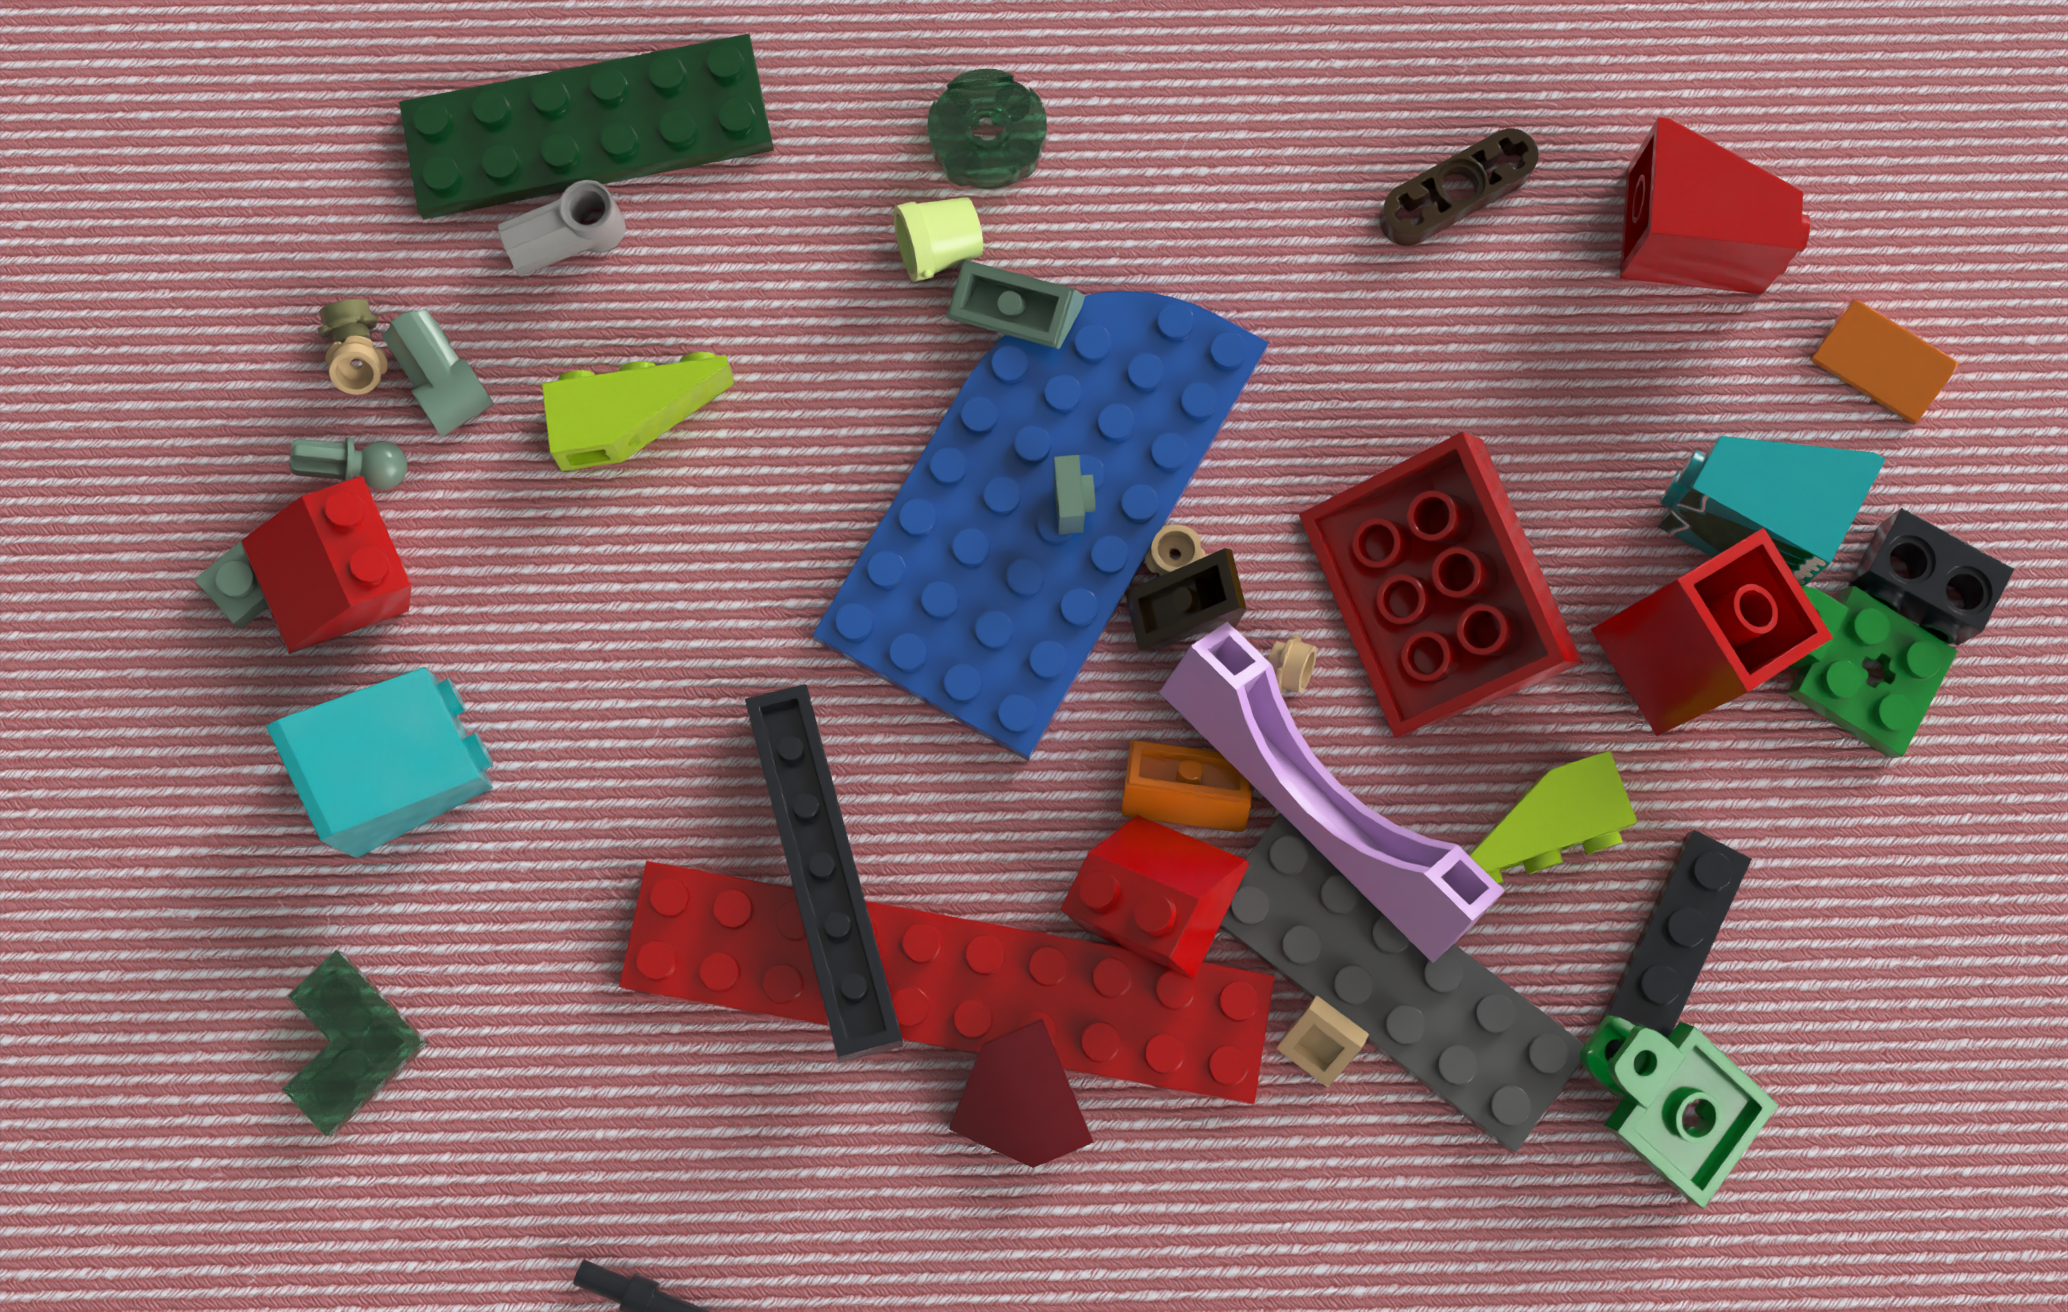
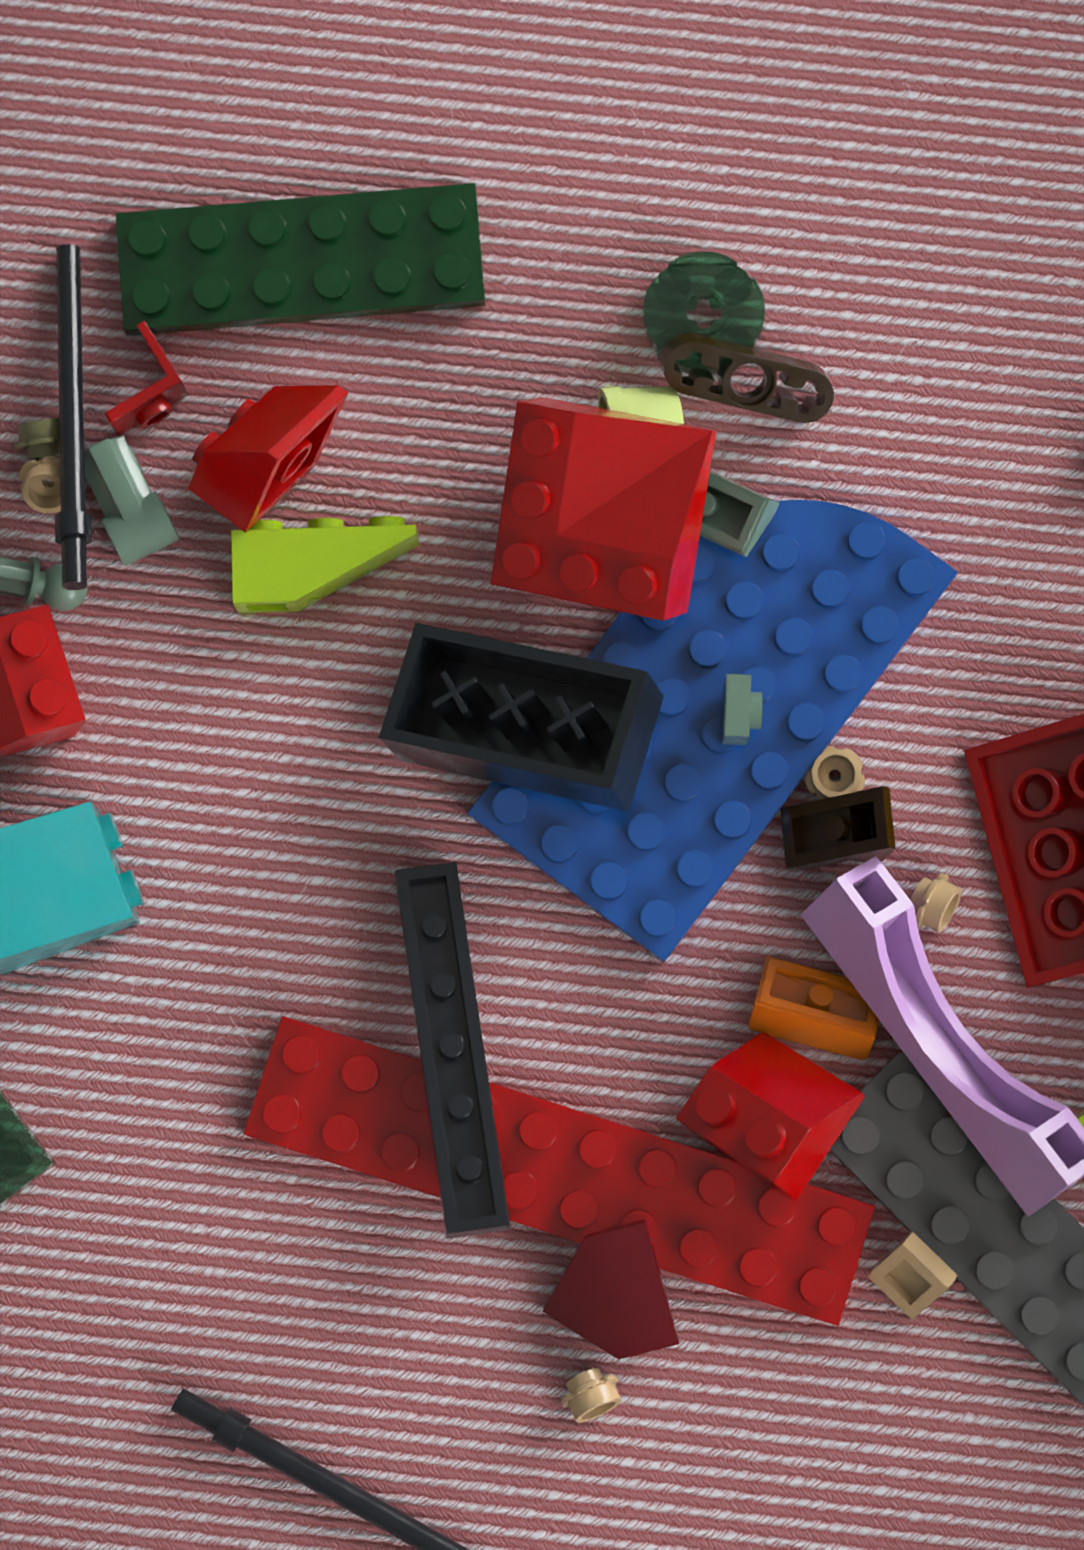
camera: 15 degrees right, 5 degrees up
(380, 393) = (72, 524): none -> black bar
(452, 273) = (153, 402): none -> red bracket
(557, 231) = (258, 367): light grey piece -> none
(568, 302) = (265, 450): none -> red slope
(854, 525) = (522, 716): none -> black brick
(909, 311) = (602, 507): none -> red slope
(1009, 1209) = (591, 1395): none -> tan plate
(1077, 203) = (784, 405): none -> dark brown beam

